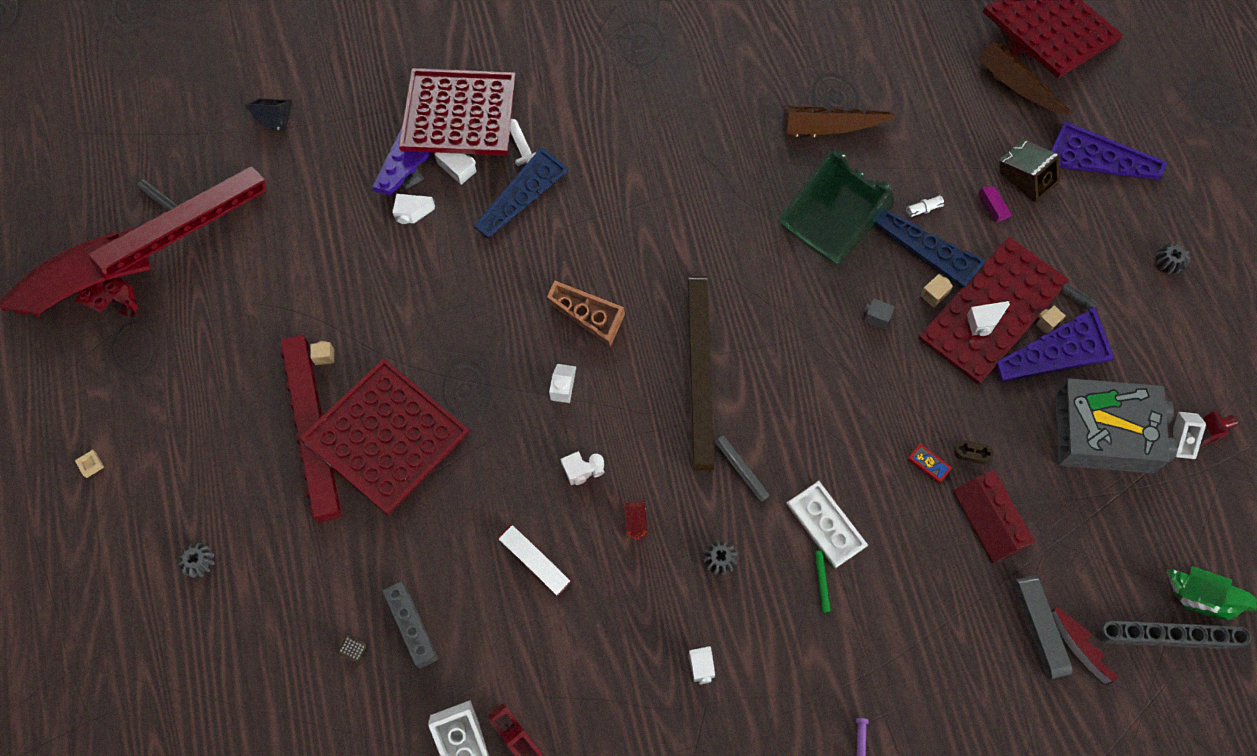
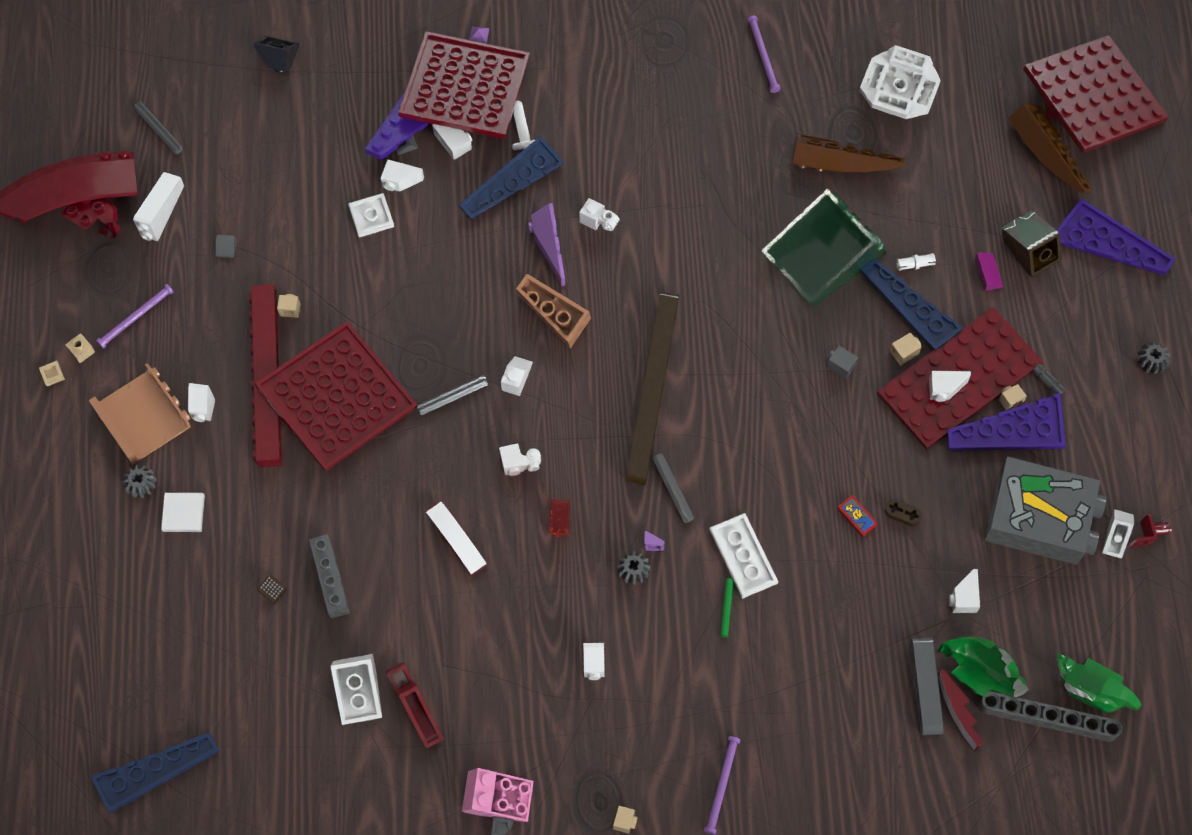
camera: 10 degrees right, 0 degrees up
(115, 432) = (80, 348): none -> tan plate
(167, 390) = (134, 316): none -> medium lavender bar
(175, 277) = (158, 206): none -> white slope
(177, 223) = (171, 152): dark red brick -> none
(189, 491) = (142, 415): none -> nougat panel
(247, 467) = (200, 402): none -> white slope
(247, 584) = (183, 512): none -> white tile
(249, 305) = (225, 246): none -> dark grey slope
(389, 250) = (371, 215): none -> white tile
(463, 63) = (479, 34): none -> medium lavender slope
(502, 414) = (452, 395): none -> axle
(563, 238) = (545, 232): none -> medium lavender wedge
(608, 212) = (595, 214): none -> white brick
(734, 528) = (652, 543): none -> medium lavender slope
(753, 67) = (752, 21): none -> medium lavender bar
(872, 42) = (902, 69): none -> white piece
(993, 516) = (905, 576): dark red slope -> none
(1058, 523) = (966, 595): none -> white slope
(1098, 596) = (984, 666): none -> green animal

